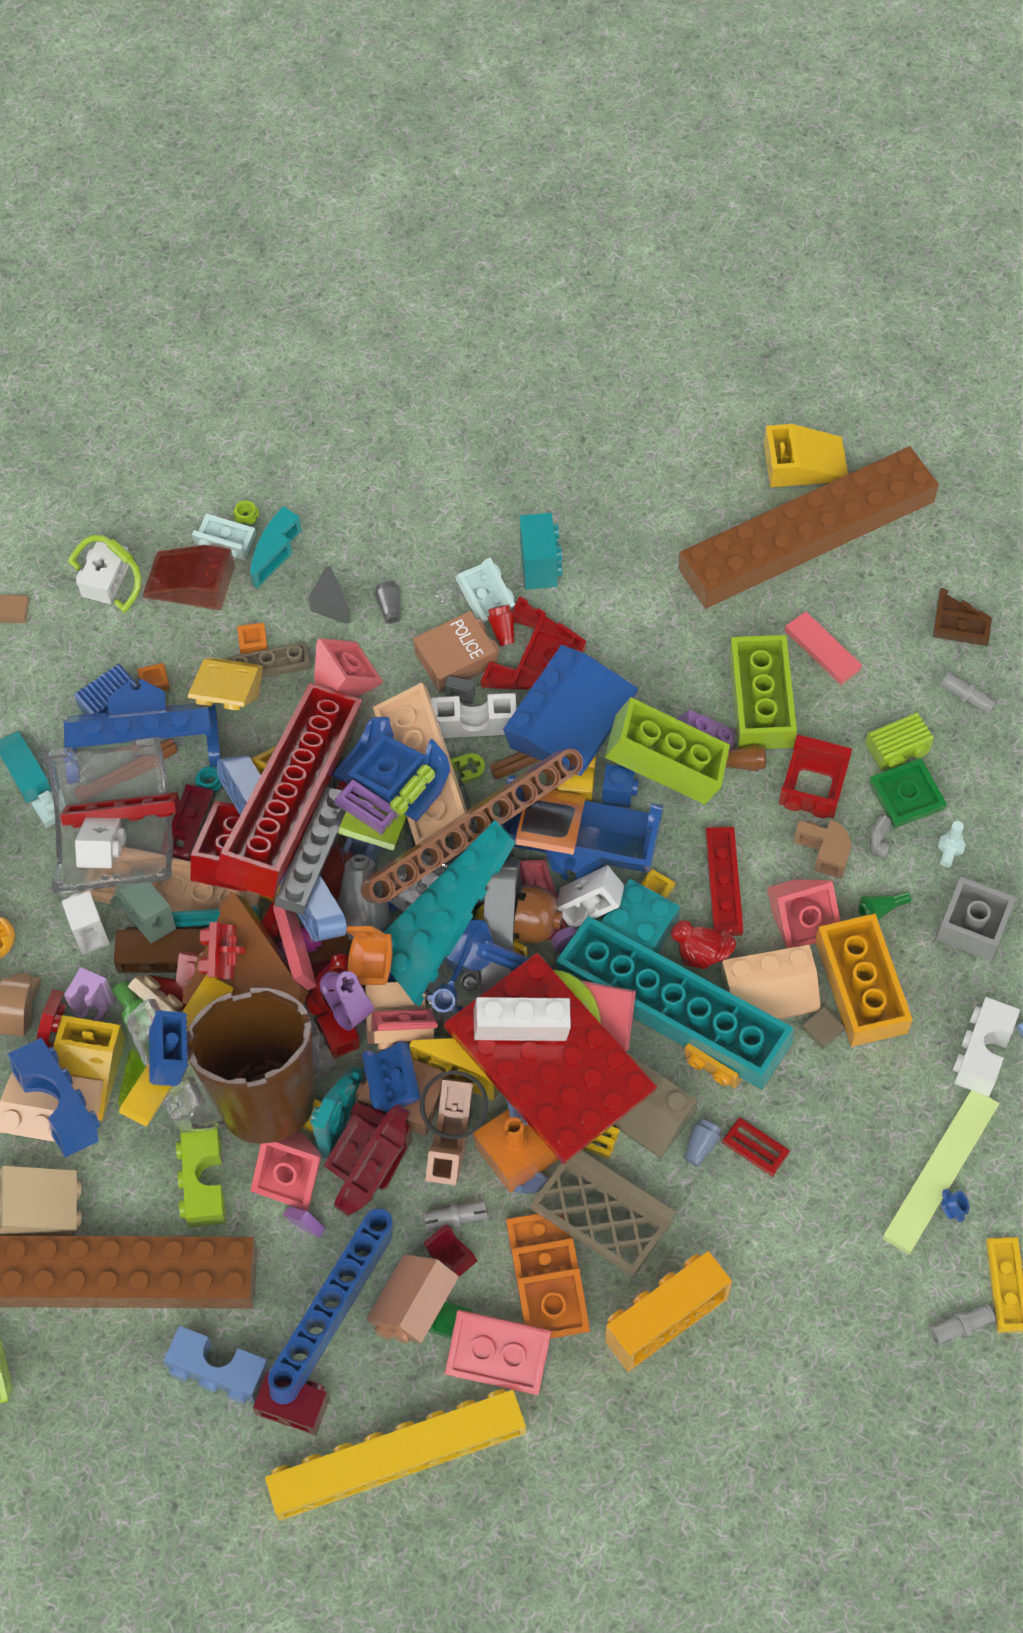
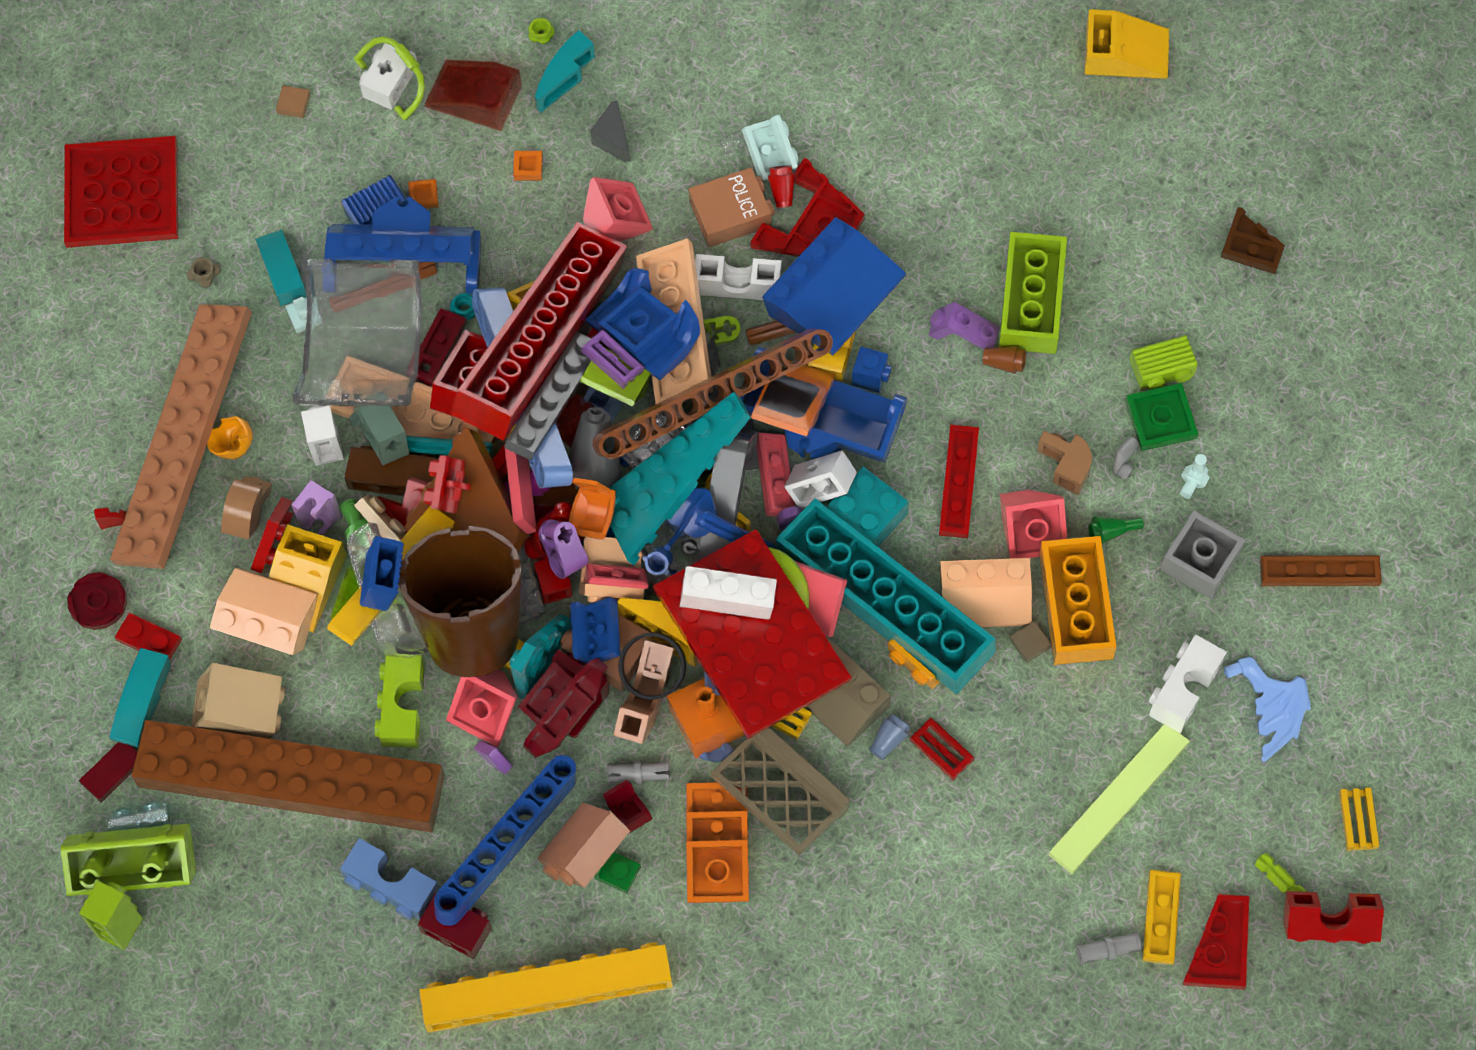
camera: 10 degrees right, 5 degrees up
(38, 1071) = (257, 576): blue arch -> none
(99, 842) = (345, 358): white brick -> none
(132, 808) = (371, 325): red plate -> none
(225, 534) = (516, 53): light aqua bracket -> none
(227, 683) = (494, 211): yellow slope -> none
(282, 659) = (524, 195): dark tan tile -> none
(389, 601) = (672, 144): flat silver cone -> none
(412, 789) = (659, 348): lime axle -> none
(460, 687) = (728, 247): dark grey tile -> none
(498, 1352) = (657, 907): coral tile -> none
(536, 915) = (763, 490): dark orange cylinder -> none
(540, 550) = (833, 113): teal brick -> none
(658, 883) = (893, 475): yellow tile -> none
(667, 751) = (923, 341): lime brick -> none
(667, 1310) = (825, 892): light orange brick -> none
(701, 945) = (924, 543): red hair -> none
(807, 527) = (1114, 122): dark orange brick -> none
(819, 758) = (1077, 368): red window -> none
(823, 648) = (1106, 253): coral tile -> none
(955, 1204) = (1125, 833): blue plate -> none
(968, 693) = (1245, 321): light grey pin -> none

